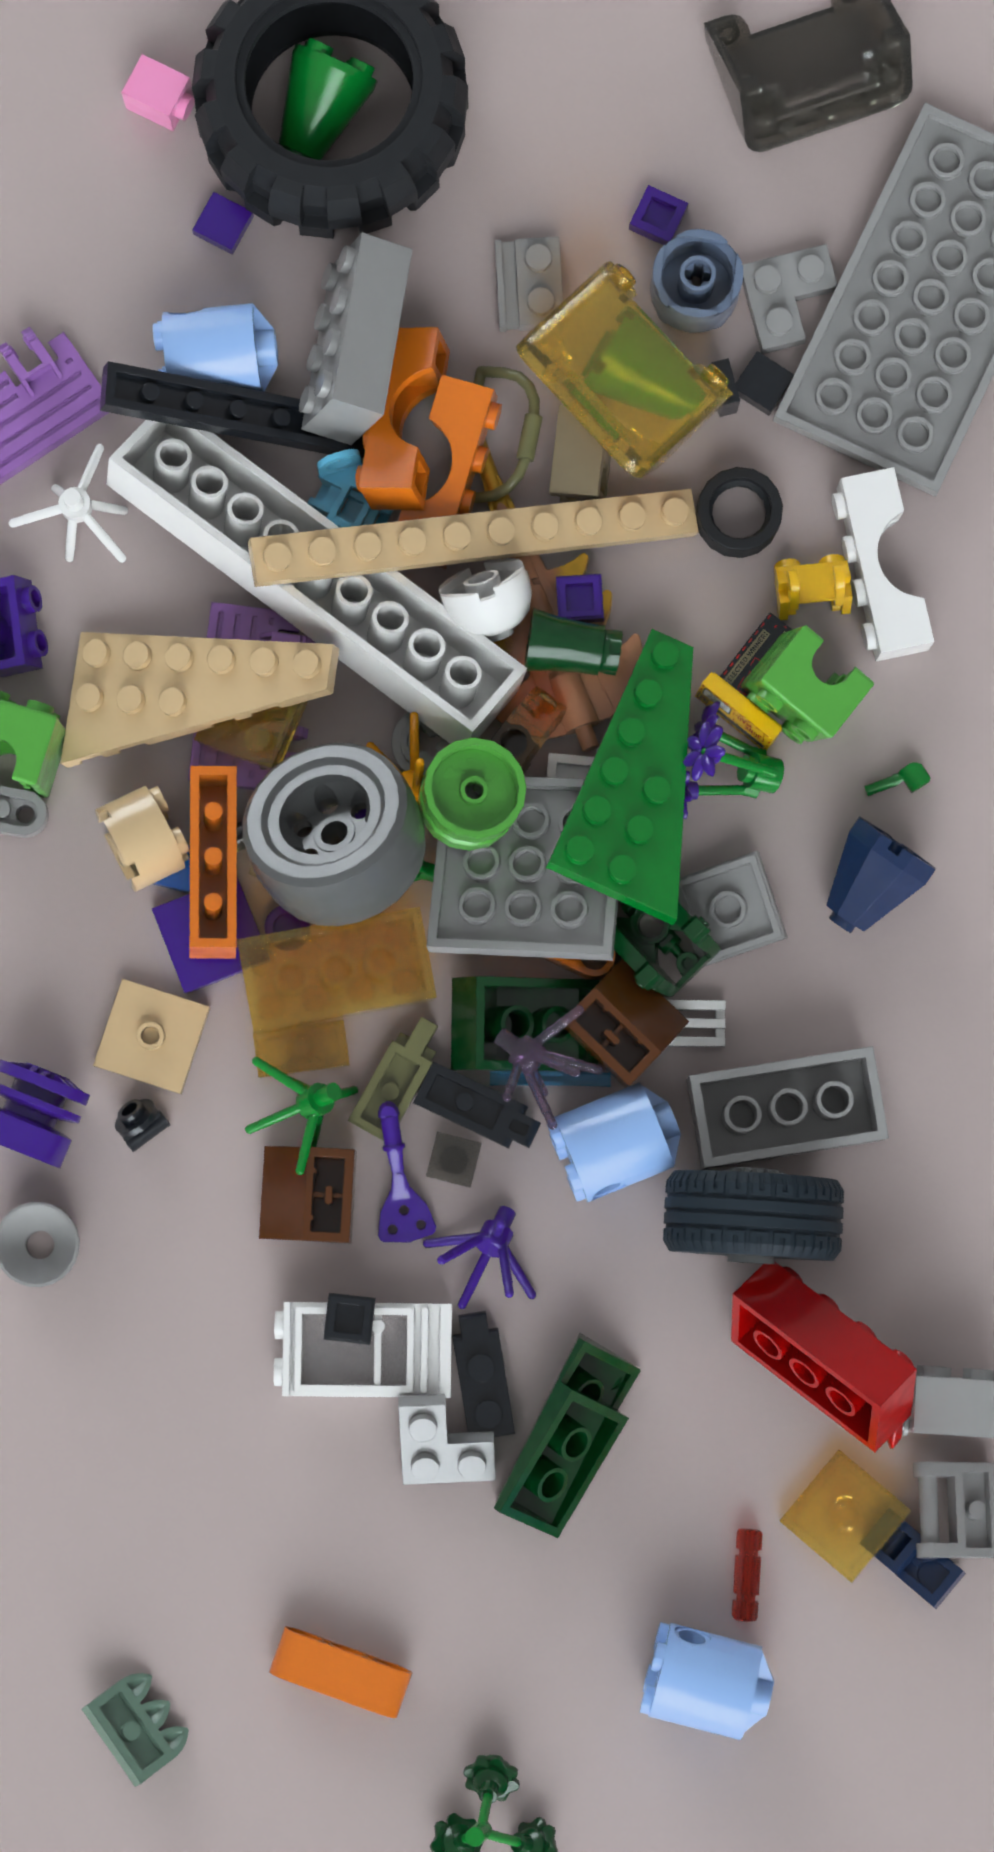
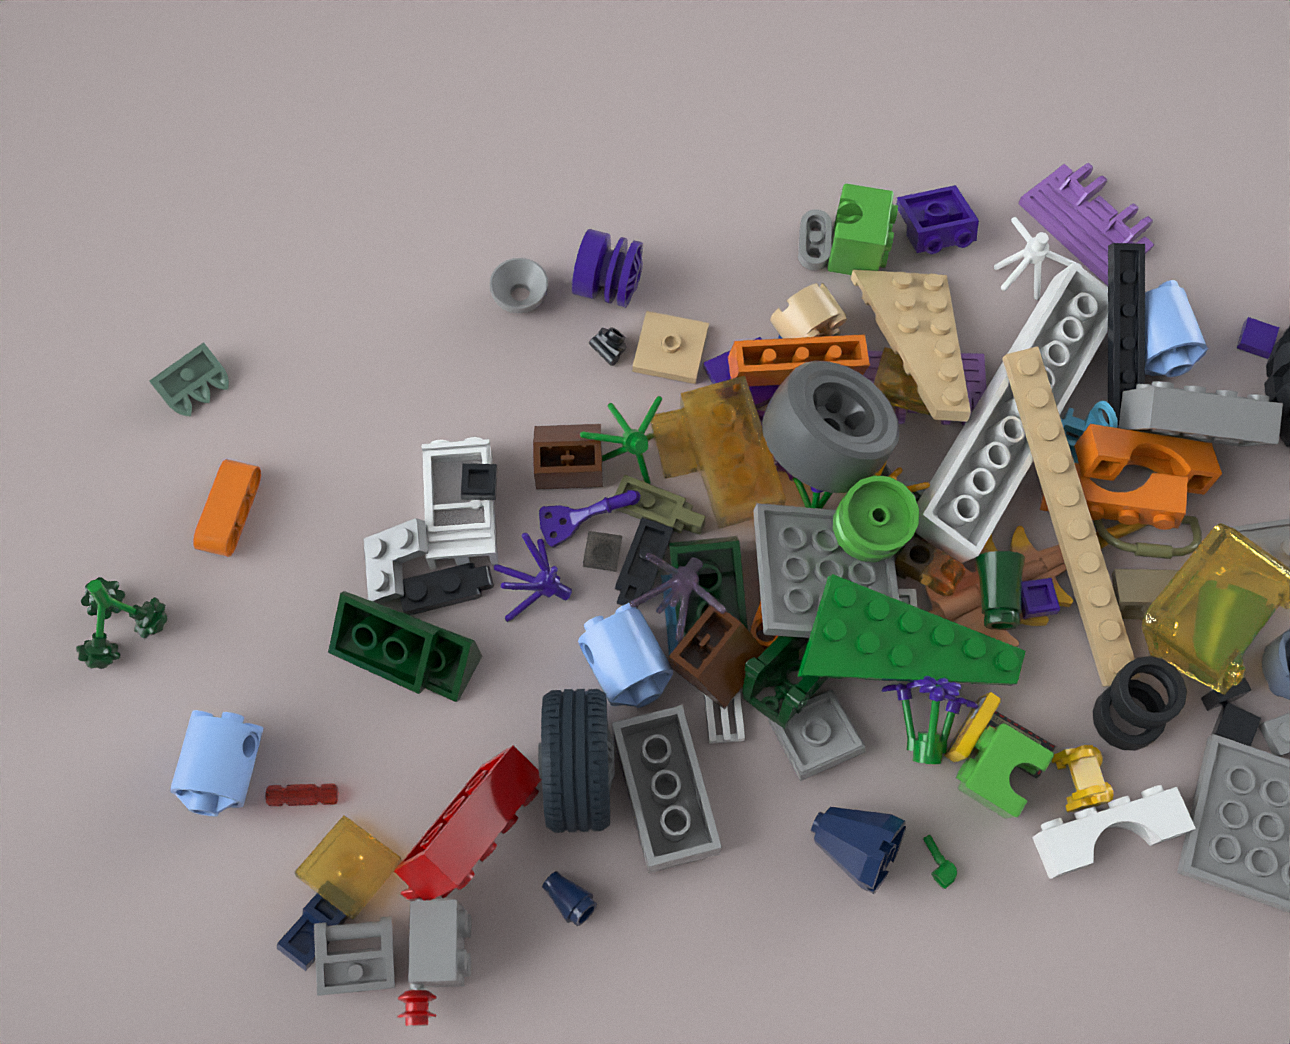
camera: 85 degrees right, 15 degrees down
(489, 600) = (1023, 528): white cylinder -> none
(718, 453) = (1166, 674): none -> black tyre
(907, 1240) = (570, 899): none -> dark blue cone

